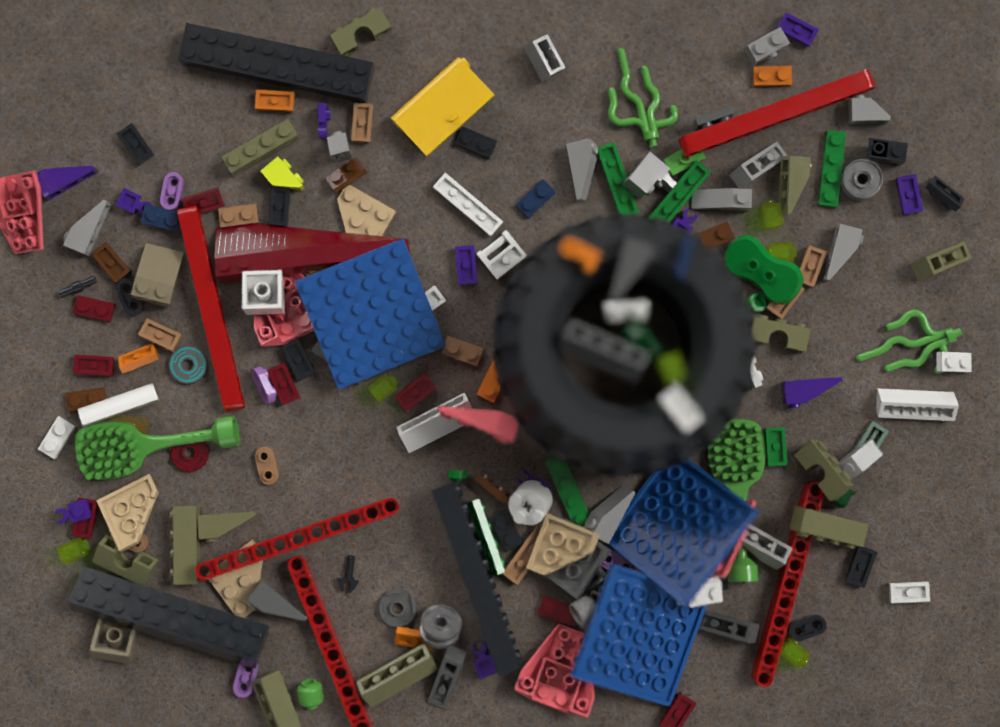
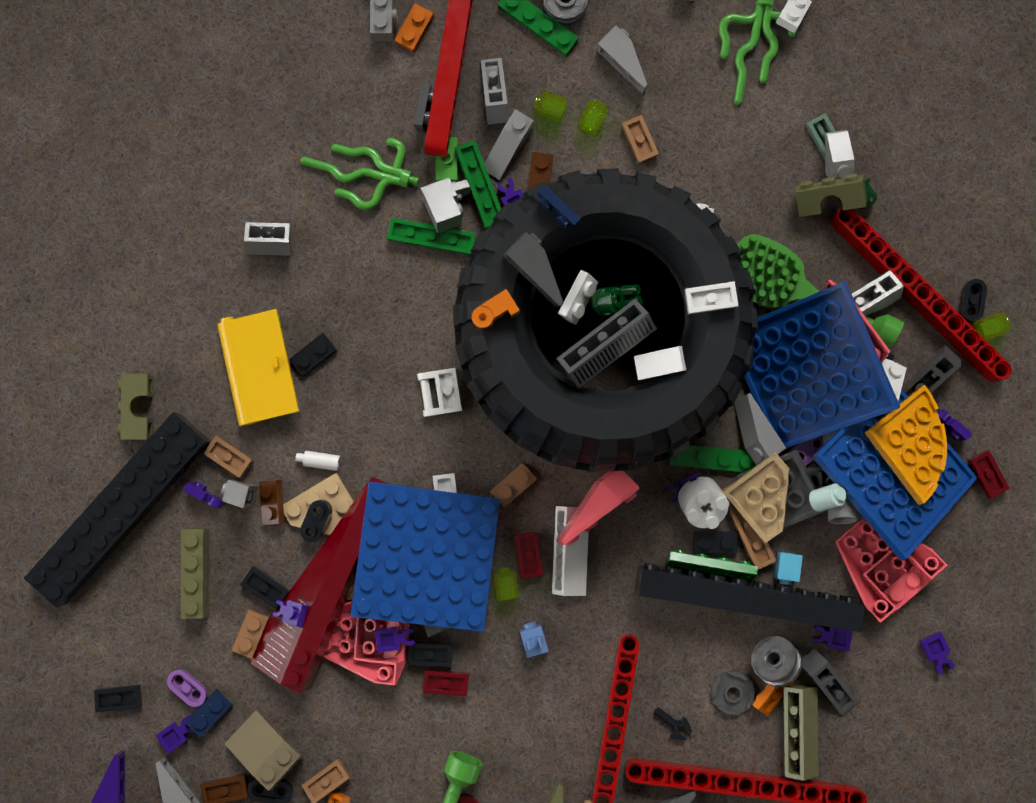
camera: 60 degrees left, 0 degrees up
(180, 356) = (368, 781): dark grey tile -> none
(205, 200) = (216, 662): dark red plate -> none
(211, 308) = (328, 714): red beam -> none
(263, 292) = (343, 654): white slope -> none
(263, 385) = (445, 703): medium lavender plate -> none
(269, 464) = (518, 745): medium nougat plate -> none
(272, 237) = (292, 612): none -> dark purple plate
(274, 100) = (155, 532): orange plate -> none
(280, 176) = (234, 569): neon yellow slope -> none
(293, 322) = (389, 638): none -> dark purple plate
(350, 216) = (315, 521): none -> black plate
(353, 432) = (533, 639): none -> medium blue brick
(398, 193) = (319, 460): none -> white cylinder
(457, 475) = (634, 559): green tile -> none
(466, 265) = (430, 433): dark purple plate -> none
(468, 204) = (370, 397): white plate -> none
(485, 481) = (658, 534): reddish brown plate -> none
(490, 386) = (563, 476): orange plate -> none
(517, 596) = (787, 567): none -> medium azure brick
(535, 198) = (402, 327): dark blue plate -> none
(556, 610) = (822, 535): dark red plate -> none
(582, 163) = (395, 261): light grey slope -> none
(586, 592) = (827, 497): none -> light aqua brick
(611, 399) = (660, 363): none -> white tile
(667, 638) = (913, 443): none -> light orange plate
(672, 369) = (664, 284): clear neon green brick -> none
(697, 669) = (955, 428): none -> dark purple plate
(757, 302) = (628, 167): green tile -> none
(775, 277) = (615, 136): green plate -> none
(775, 446) = (779, 230): green plate -> none
(793, 178) = (526, 63): olive slope -> none
(795, 335) = (682, 150): olive arch -> none
(802, 391) = (741, 171): dark purple slope -> none
(811, 265) = (622, 96): medium nougat plate -> none
(828, 526) = (888, 223): olive brick -> none
(861, 566) = (942, 214): black plate -> none
(909, 592) = (992, 182): white plate -> none
(916, 404) = (814, 71): white brick -> none

